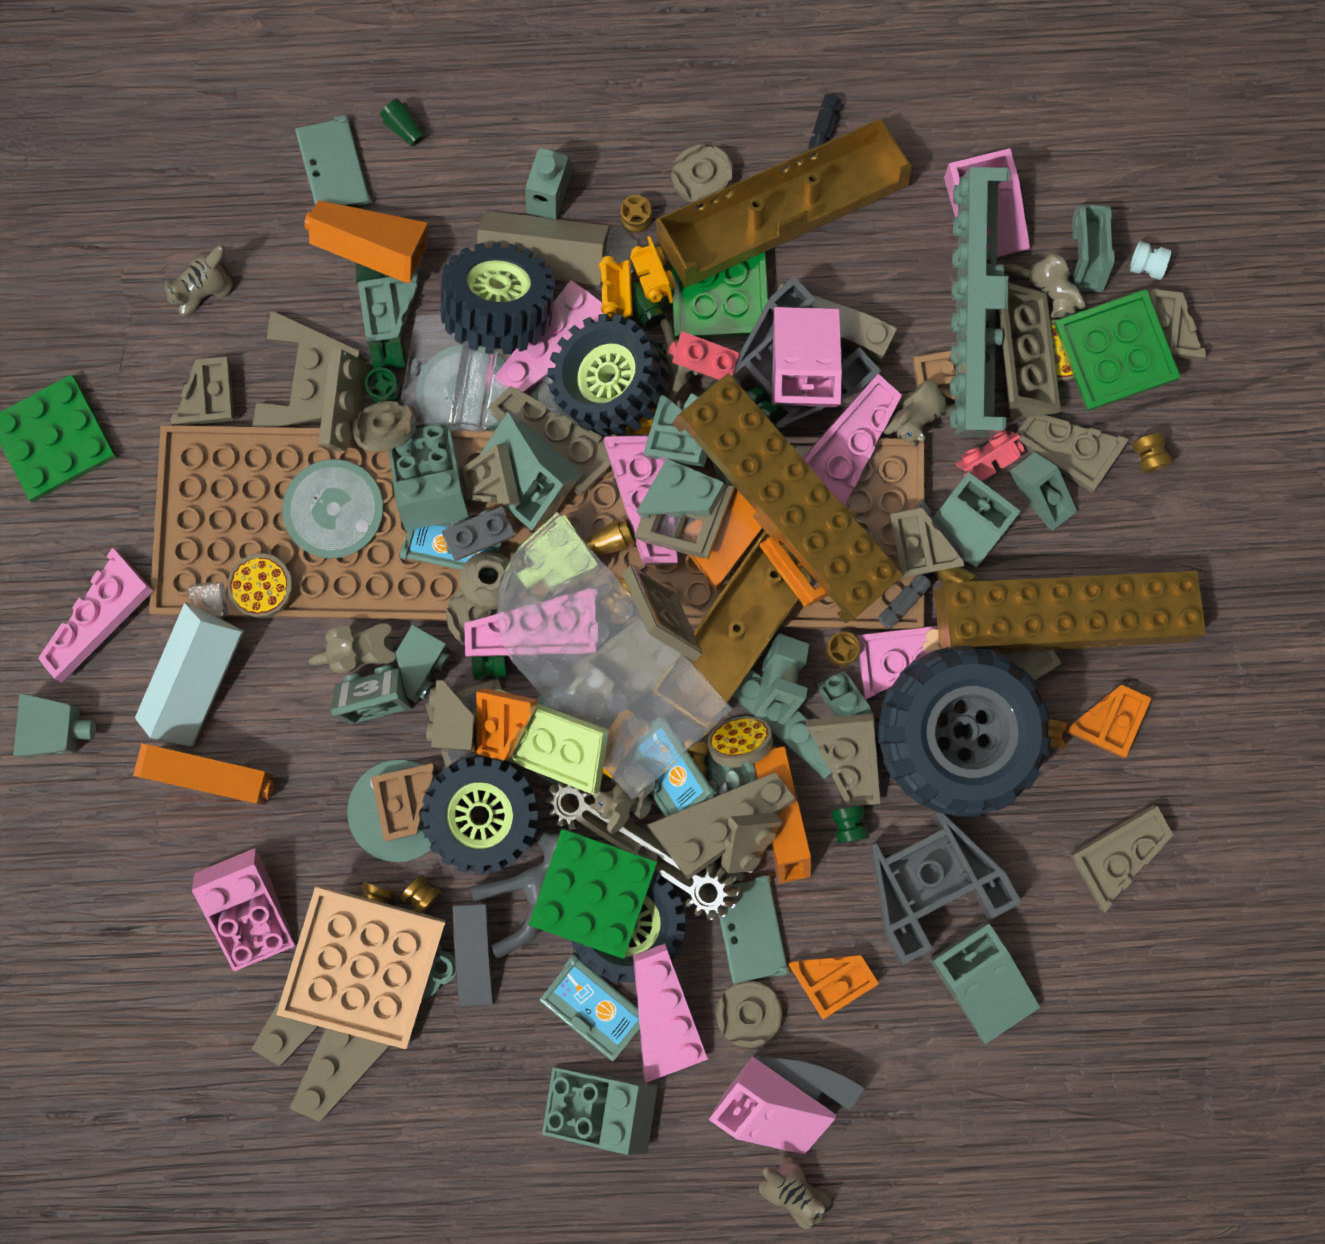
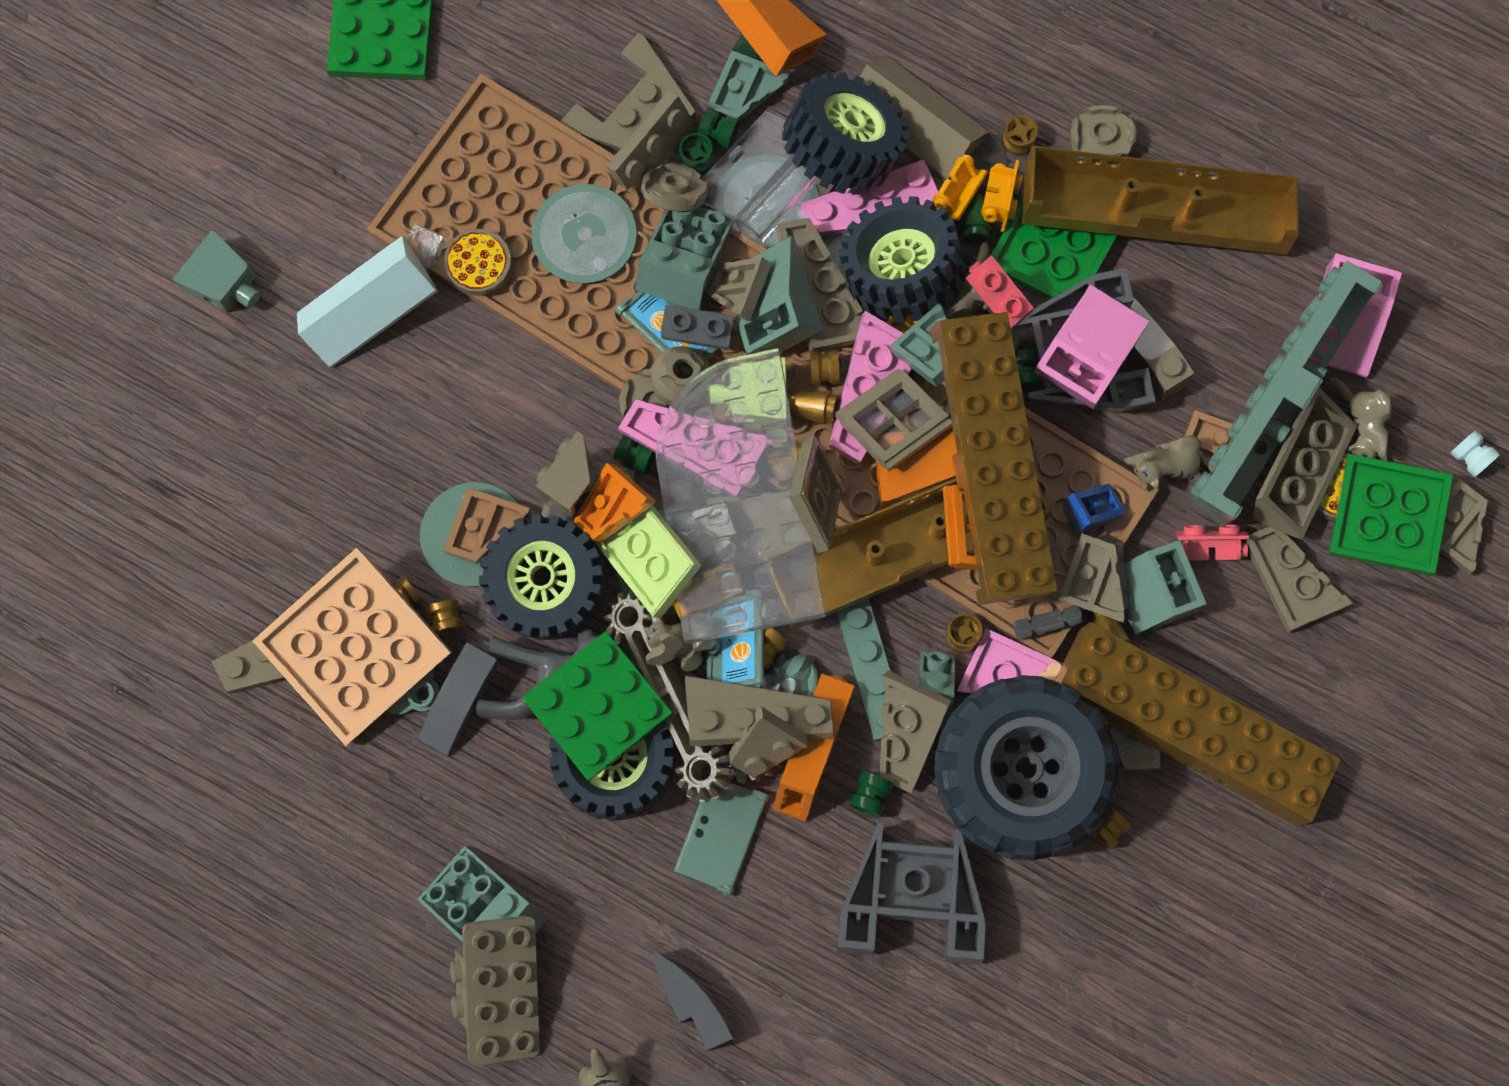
camera: 30 degrees right, 5 degrees down
(105, 606) = (335, 200): bright pink wing -> none
(203, 774) = (323, 395): orange slope -> none
(207, 394) = (537, 71): dark tan wing -> none
(242, 909) = (282, 535): bright pink slope -> none
(333, 1071) = (270, 726): dark tan wing -> none
(350, 649) = (521, 364): dark tan animal -> none
(370, 696) = (512, 417): sand green slope -> none
(418, 660) = (575, 409): sand green slope -> none
(549, 179) = (960, 57): sand green torso -> none
(597, 1004) = (534, 806): door -> none
(600, 502) = (824, 367): none -> pearl gold wheel
(655, 1168) = (497, 989): none -> dark tan bracket
(666, 1024) = (591, 864): bright pink wing -> none
(681, 492) = (901, 398): sand green wing -> none
(740, 741) = (817, 656): tile -> none
(749, 1014) = (671, 909): dark tan tile -> none
(770, 1111) = (634, 1005): bright pink slope -> none
(780, 676) = (894, 617): sand green piece -> none
(825, 121) = (1248, 151): black axle -> none
(833, 981) = (766, 927): orange wing -> none
(852, 438) = (1083, 450): bright pink wing -> none
(884, 487) = (1092, 508): none -> blue slope
(985, 982) = (905, 1015): sand green slope -> none
(1044, 490) = (1243, 602): sand green slope -> none
(1096, 258) = (1426, 410): sand green piece -> none
(1112, 721) = (1176, 851): orange wing -> none
(1119, 854) = (1106, 978): dark tan wing -> none
(1152, 452) = (1367, 629): pearl gold wheel -> none

